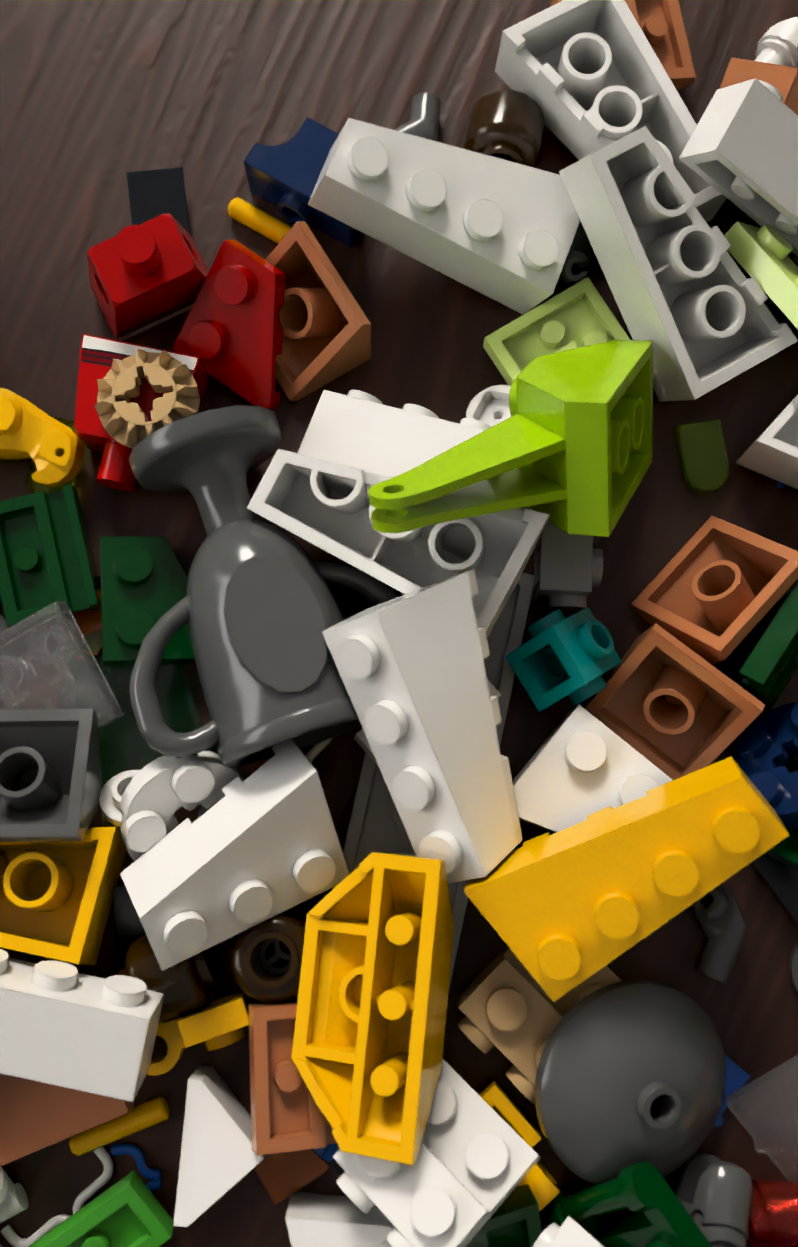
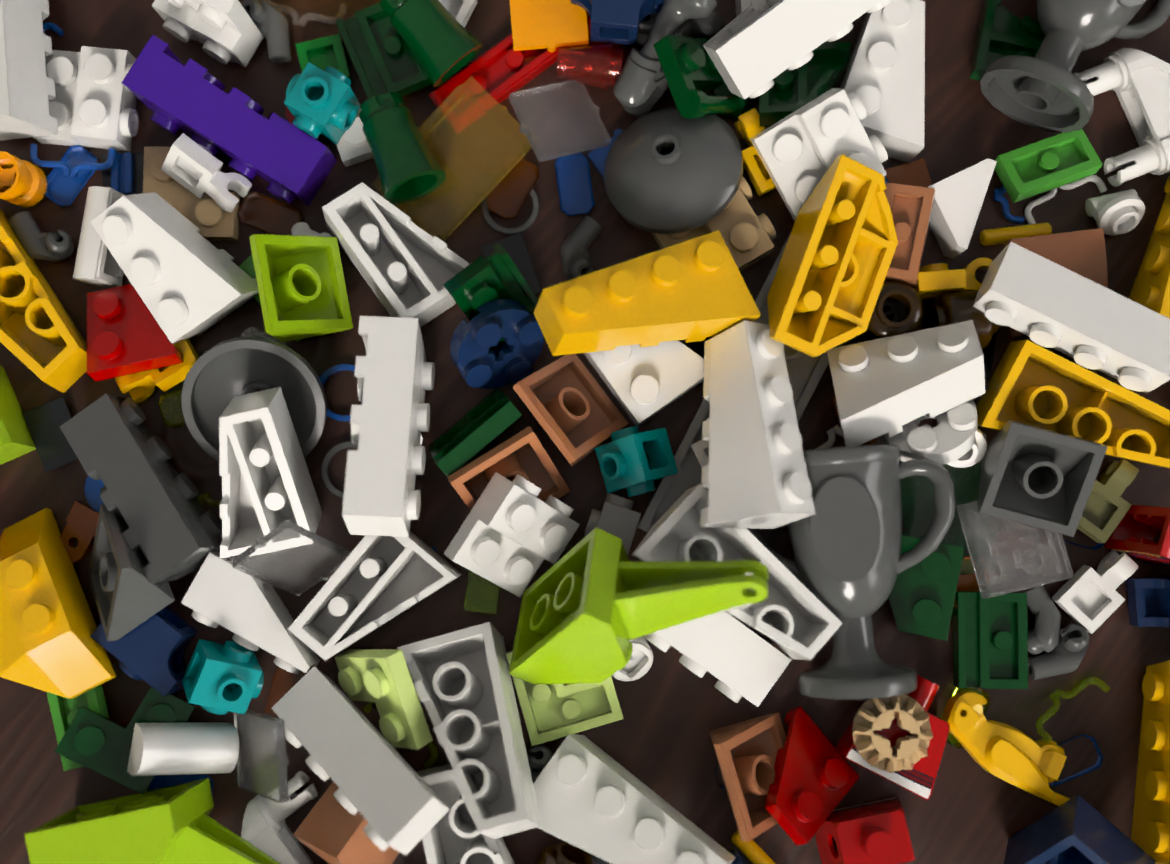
camera: 160 degrees left, 5 degrees up
(698, 521) = (512, 533): none -> white plate
(753, 1026) = (574, 184): none -> blue piece

